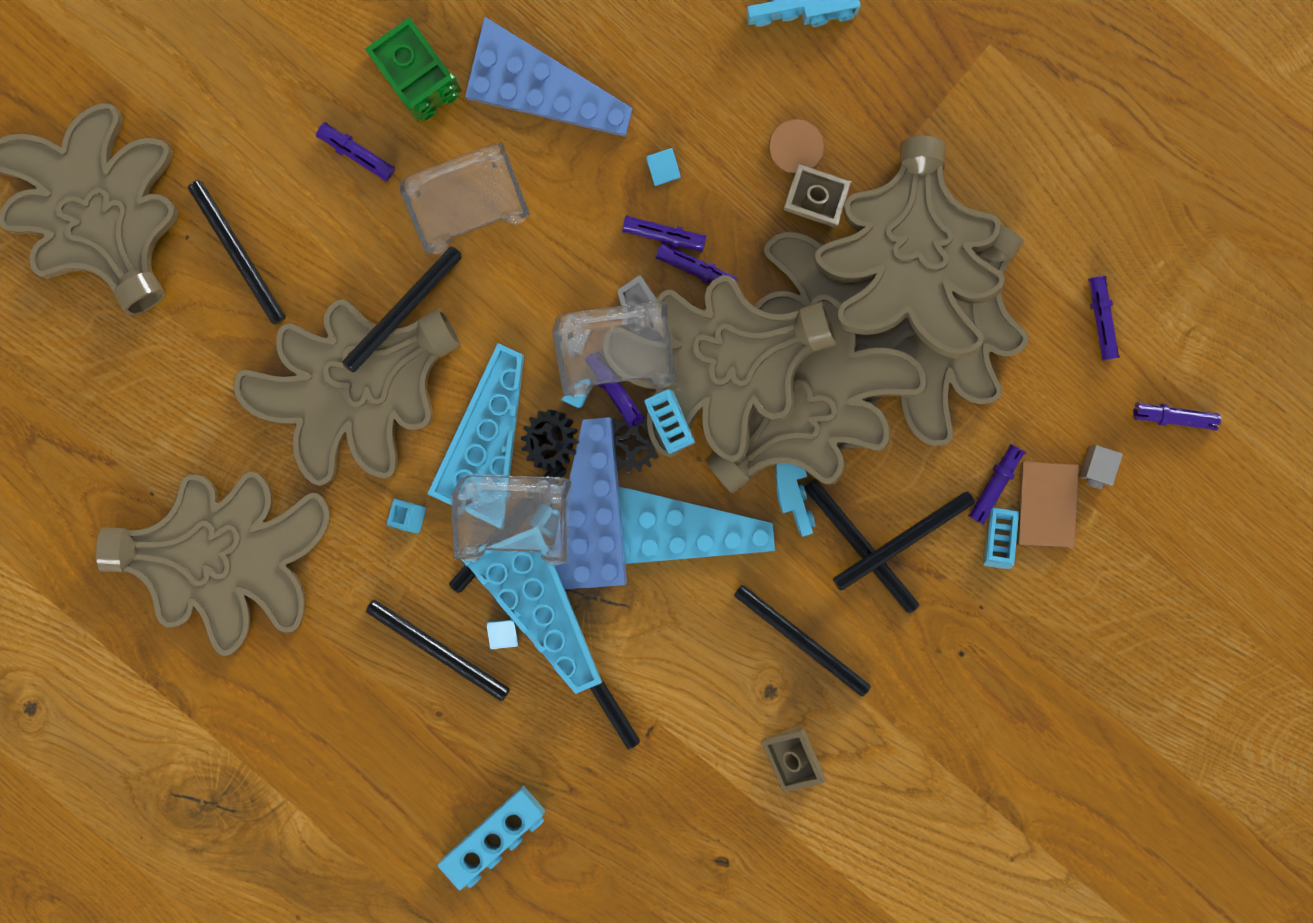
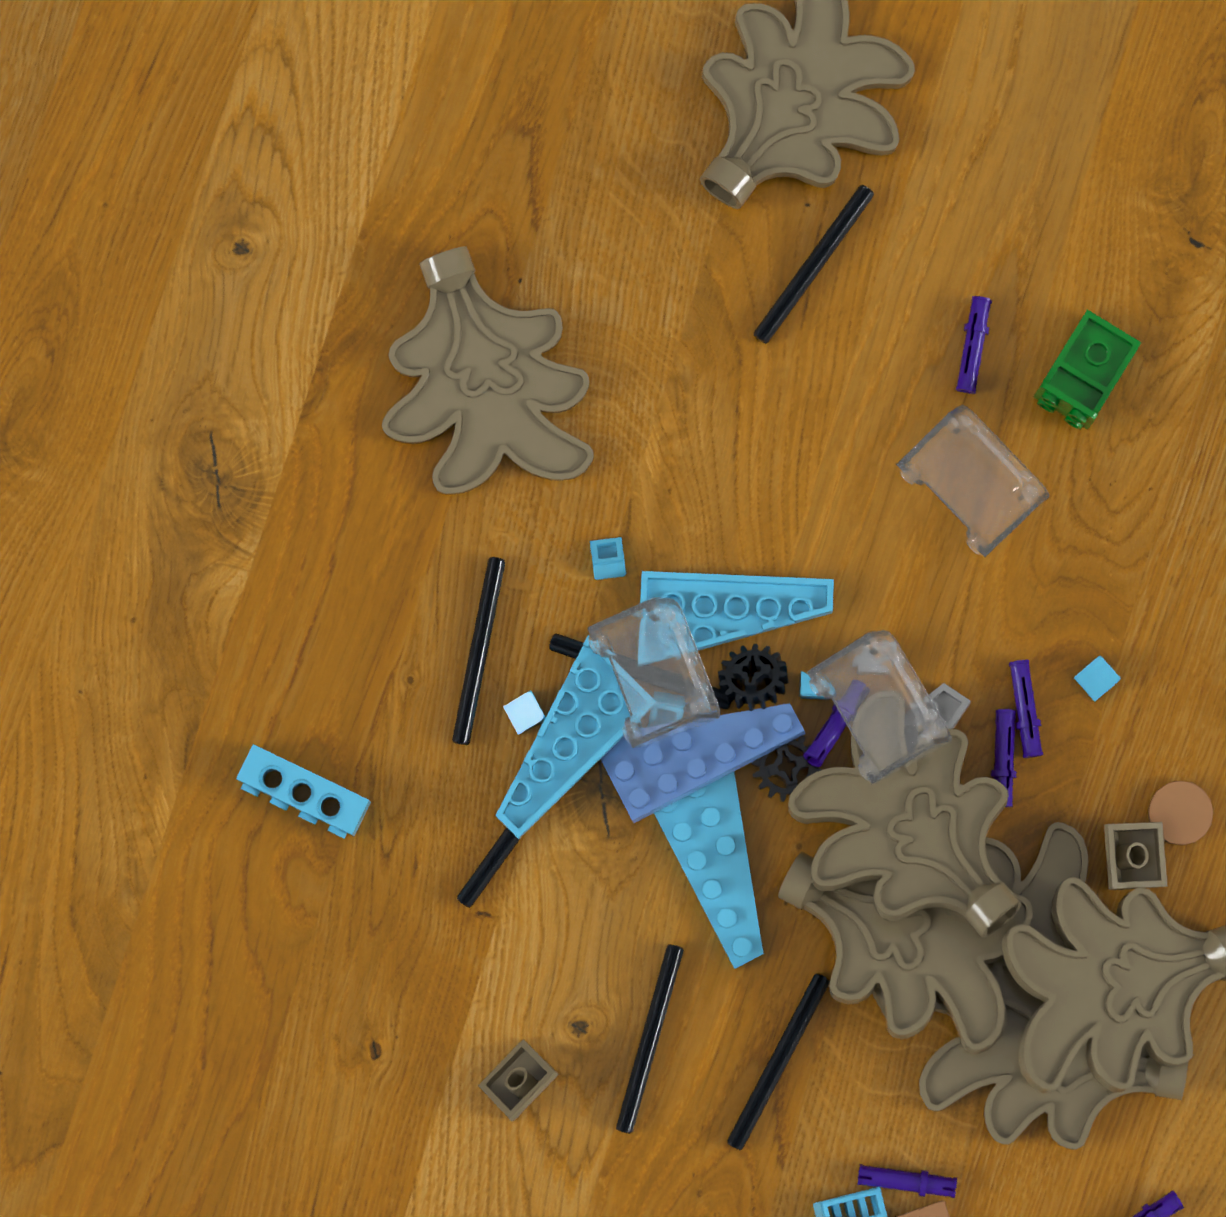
camera: 70 degrees right, 5 degrees down
(336, 403) = (721, 443): dark tan plant -> none
(401, 309) = (827, 464): black axle -> none
(528, 81) = (1128, 496): medium blue wing -> none
(651, 403) = (836, 768): medium azure slope -> none
(792, 495) = (802, 962): medium azure slope -> none
(903, 541) = (803, 1103): black axle -> none

